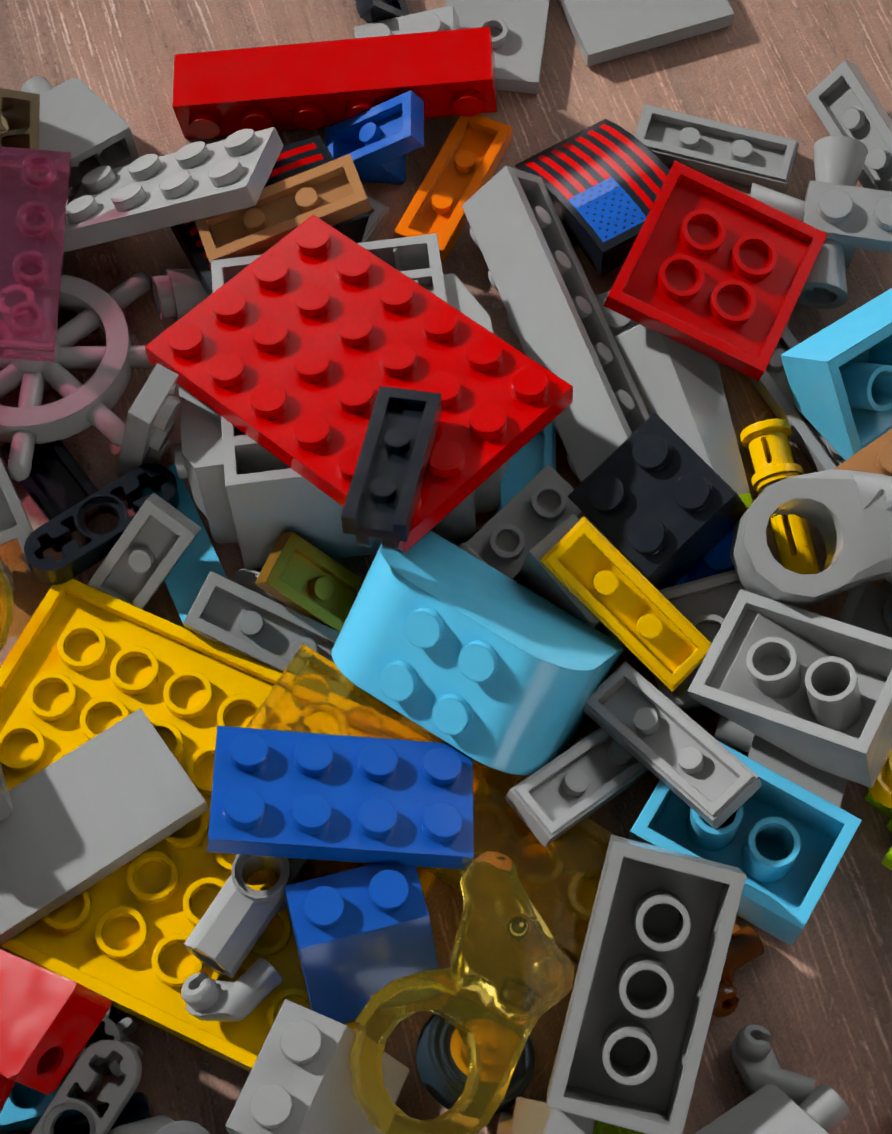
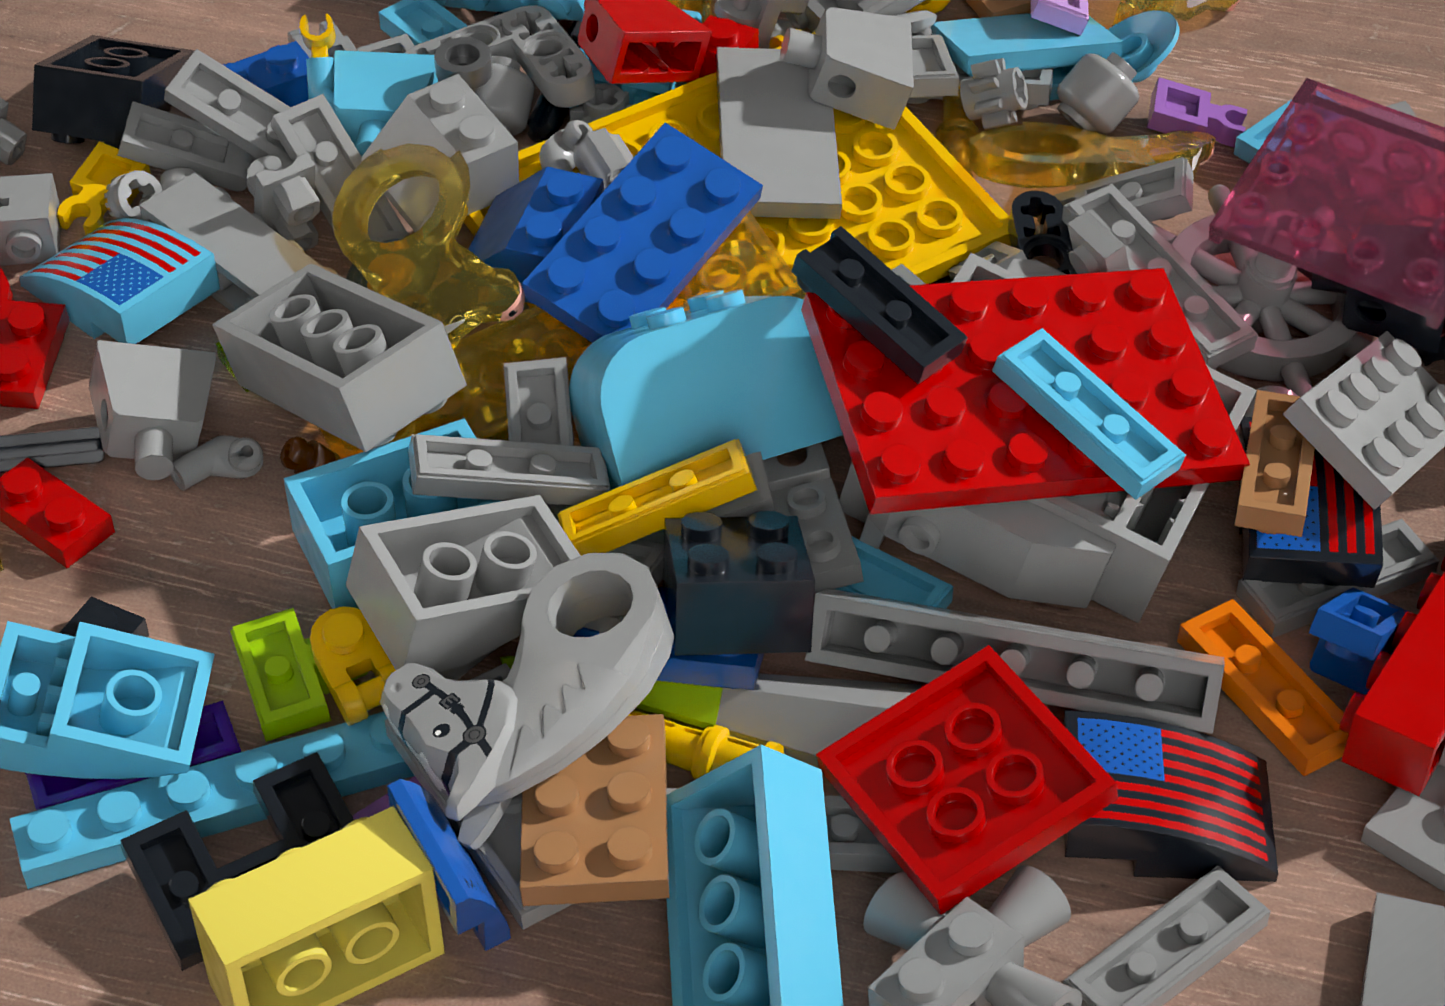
camera: 120 degrees right, 20 degrees down
(86, 415) = (1214, 323): none -> light grey tile
(374, 299) = (1089, 413): none -> medium azure tile

